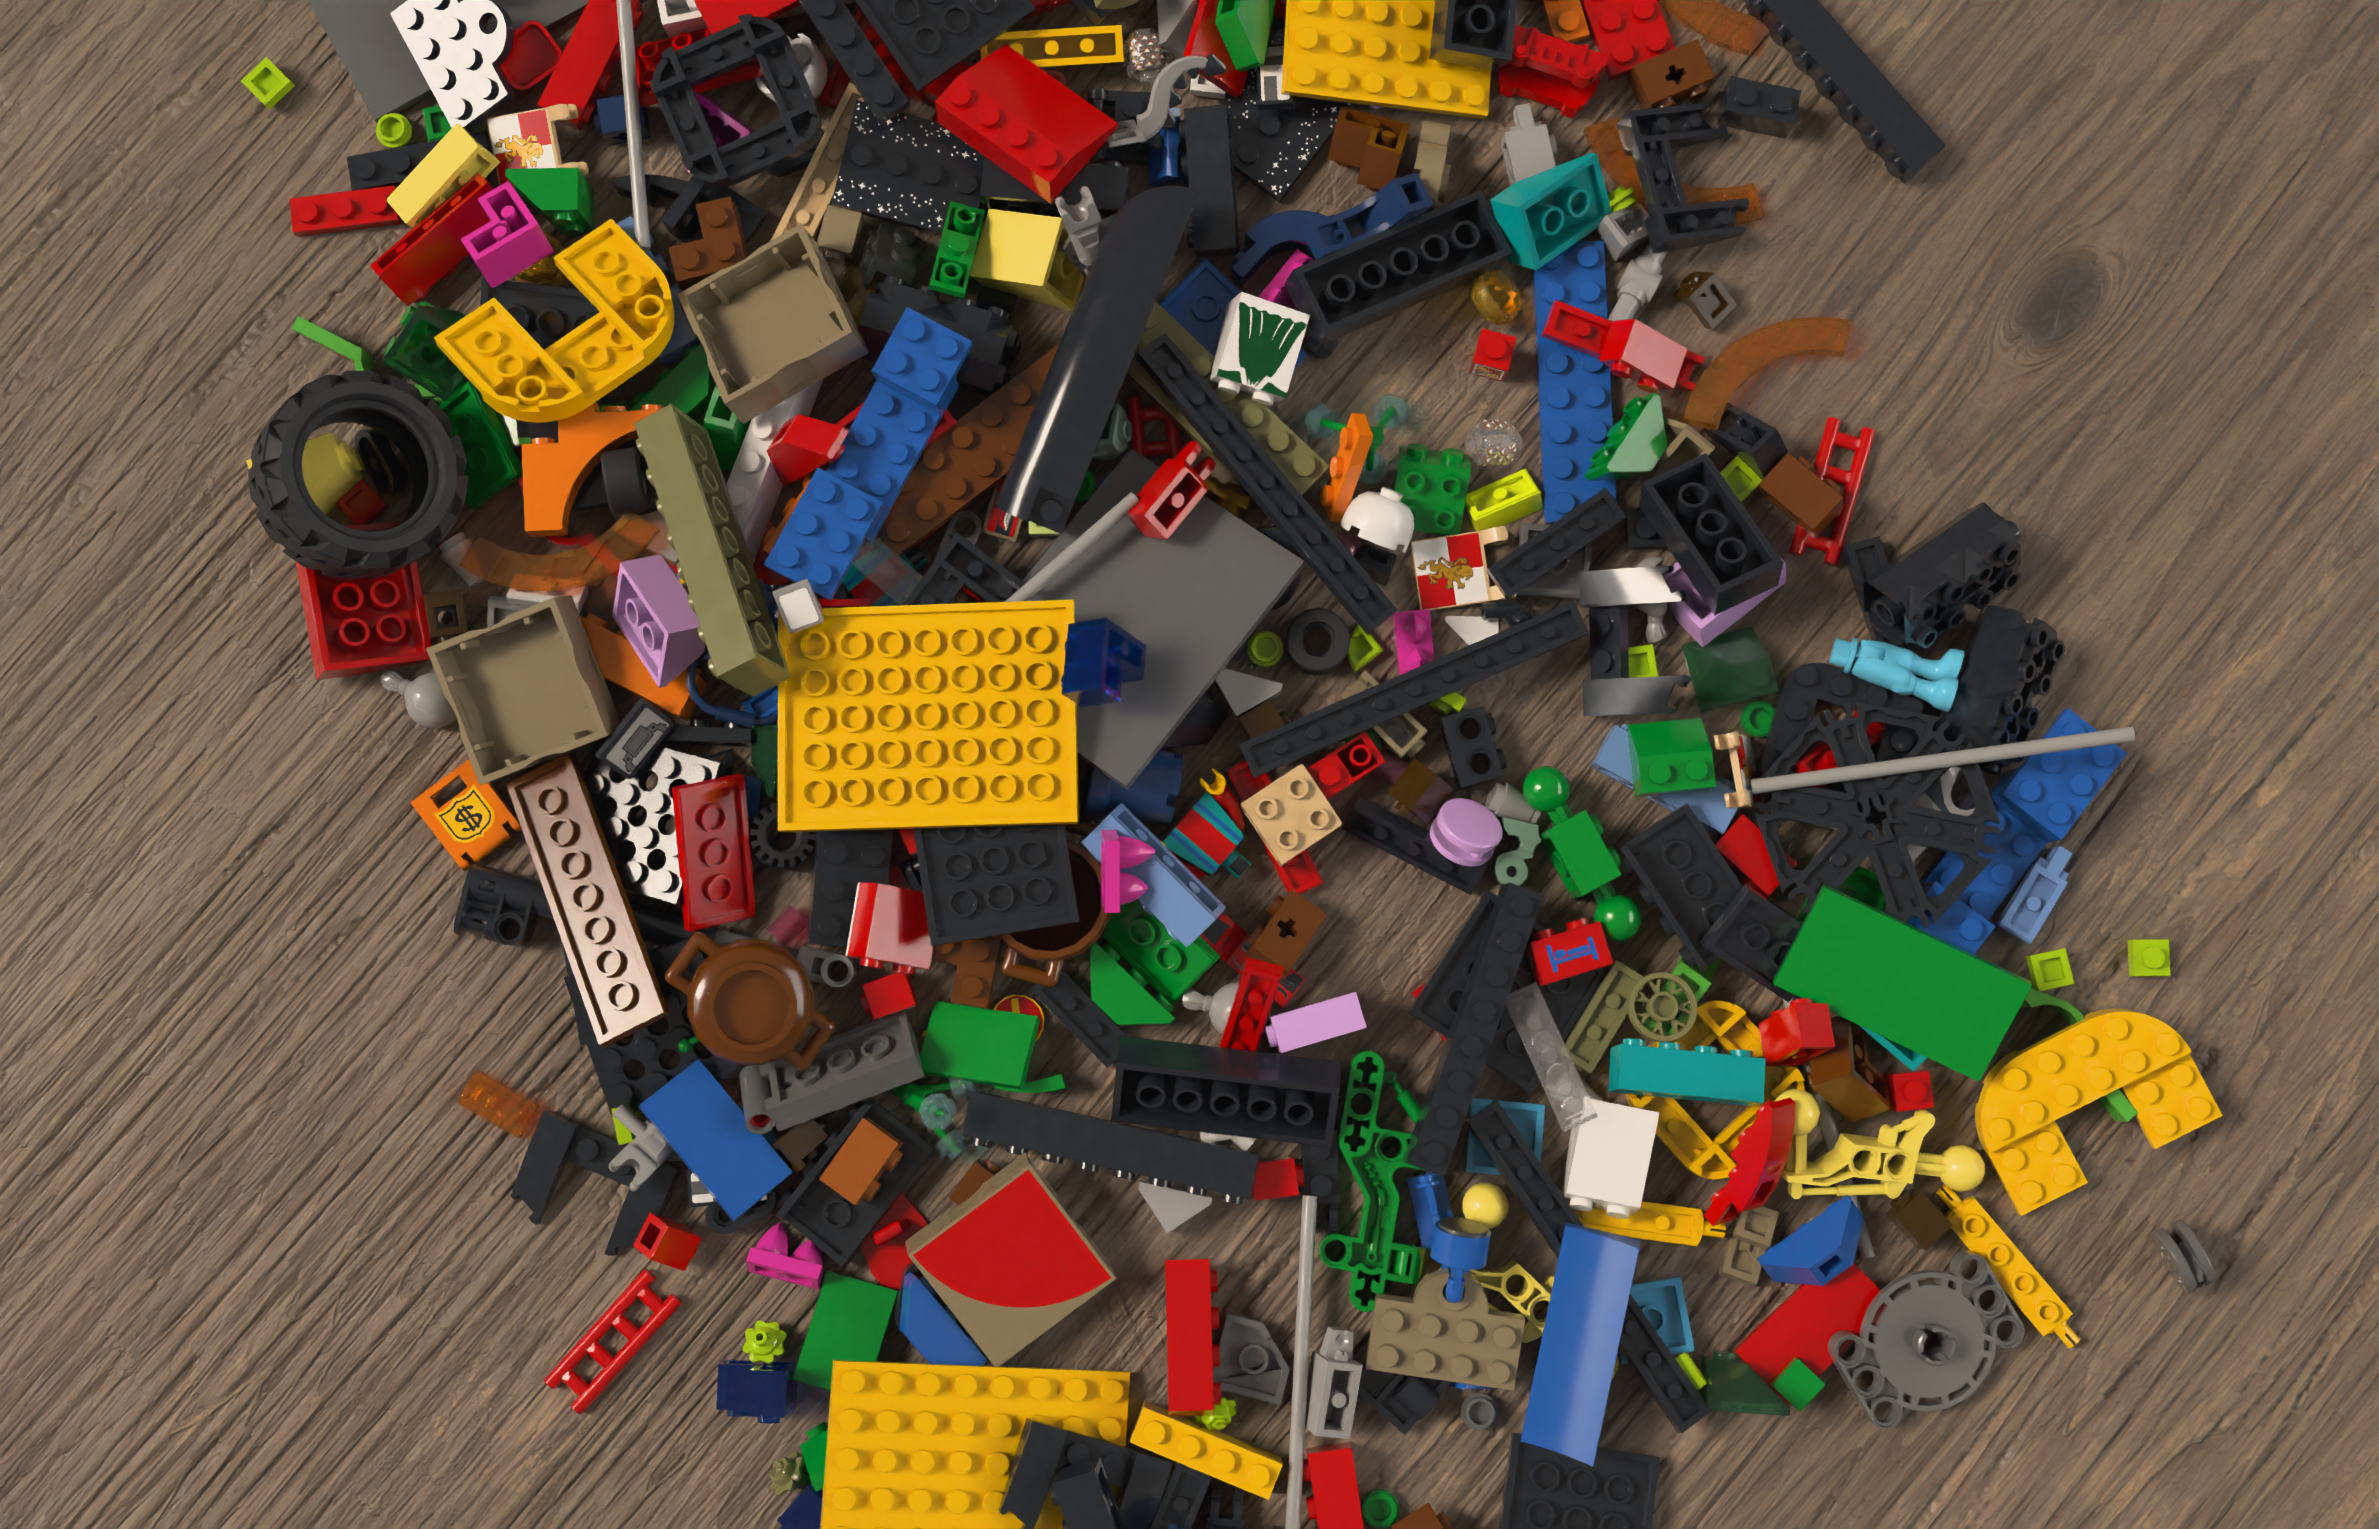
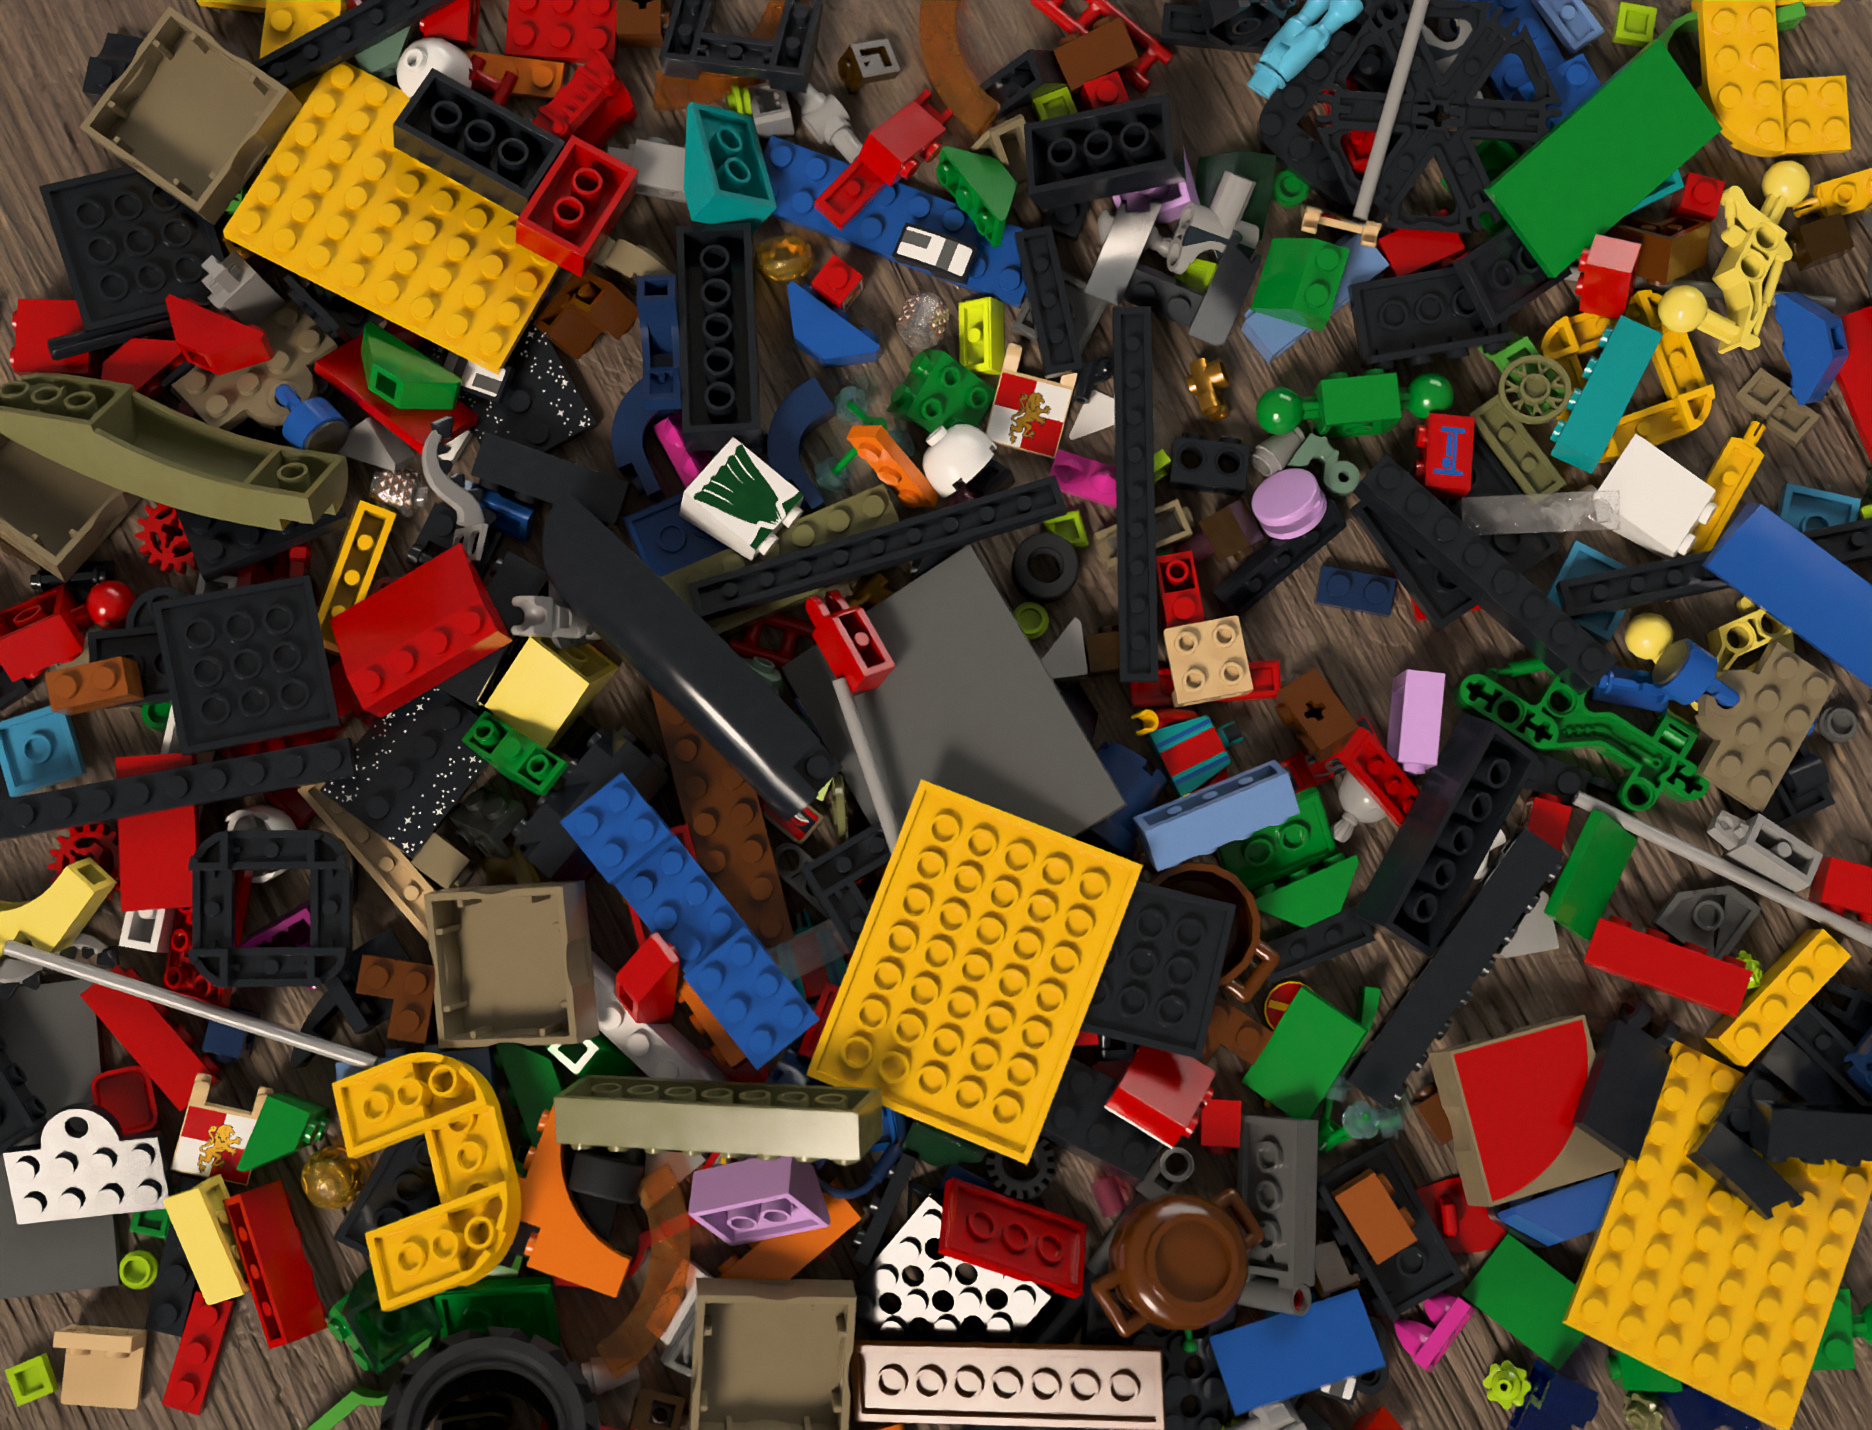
camera: 65 degrees left, 0 degrees up
(302, 135) = (102, 1365): none -> tan bracket
(510, 238) = (311, 1194): dark pink brick -> none
(635, 739) = (868, 1271): slope -> none
(798, 606) = (815, 1052): slope -> none
(1027, 549) = (839, 809): none -> olive wheel
(1072, 1339) = (1626, 1080): none -> black tile
(1099, 661) = (995, 778): clear blue brick -> none
(1120, 854) = (1188, 843): dark pink tile -> none
(1245, 1236) = (1590, 875): none -> green tile
(1337, 367) = (791, 425): none -> dark blue arch
(1415, 926) = (1355, 591): none -> dark blue plate
(1446, 361) = (826, 332): none -> blue slope
(1459, 96) = (576, 206): none -> red brick
(1544, 716) = (1206, 383): none -> pearl gold plate
(1557, 427) = (936, 252): none -> slope
(1683, 655) = (1210, 228): none -> light grey connector
(1760, 1162) = (1715, 362): red slope -> none
(1770, 515) = (1103, 92): none -> red brick

